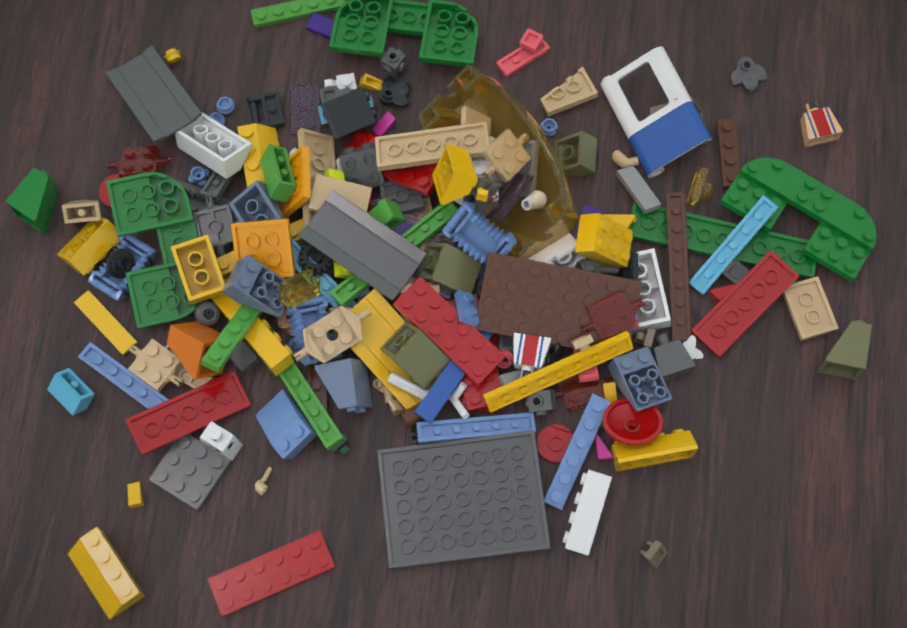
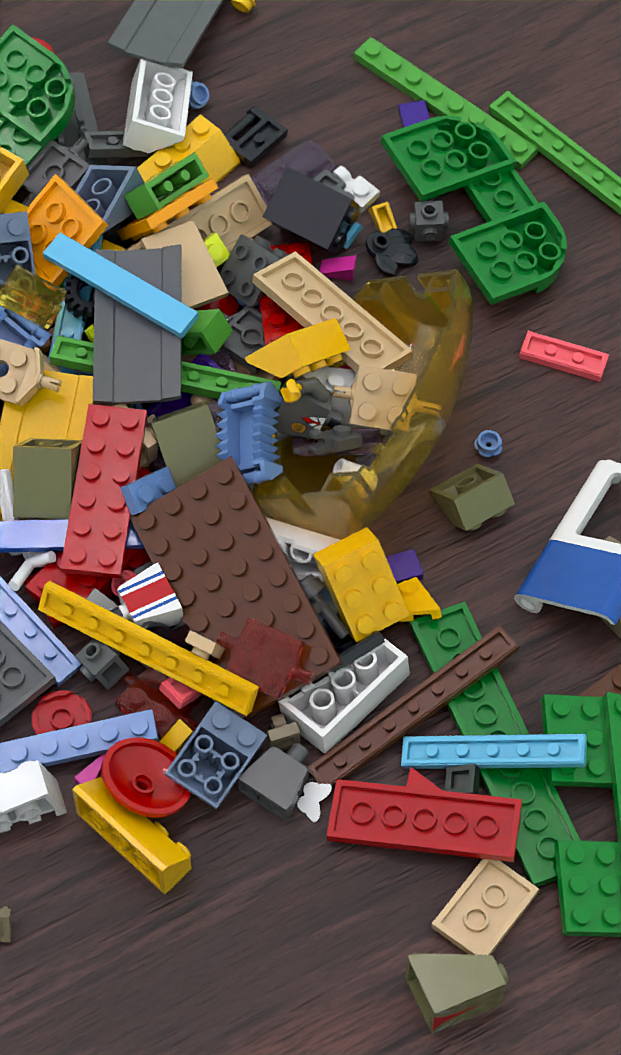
camera: 50 degrees right, 10 degrees down
(138, 160) = (82, 55): clear red plate -> none
(198, 171) = (110, 118): medium blue plate -> none
(225, 105) = (225, 92): medium blue plate -> none
(333, 237) = (121, 285): none -> medium azure tile
(470, 116) = (410, 333): tan tile -> none
(512, 193) = (337, 439): none -> dark grey plate
(531, 40) = (587, 346): coral plate -> none
(571, 93) = (559, 441): tan wing -> none
(622, 161) = (513, 557): tan arm -> none
(638, 189) = (484, 596): light grey tile -> none
(700, 188) = (548, 669): clear yellow tile -> none

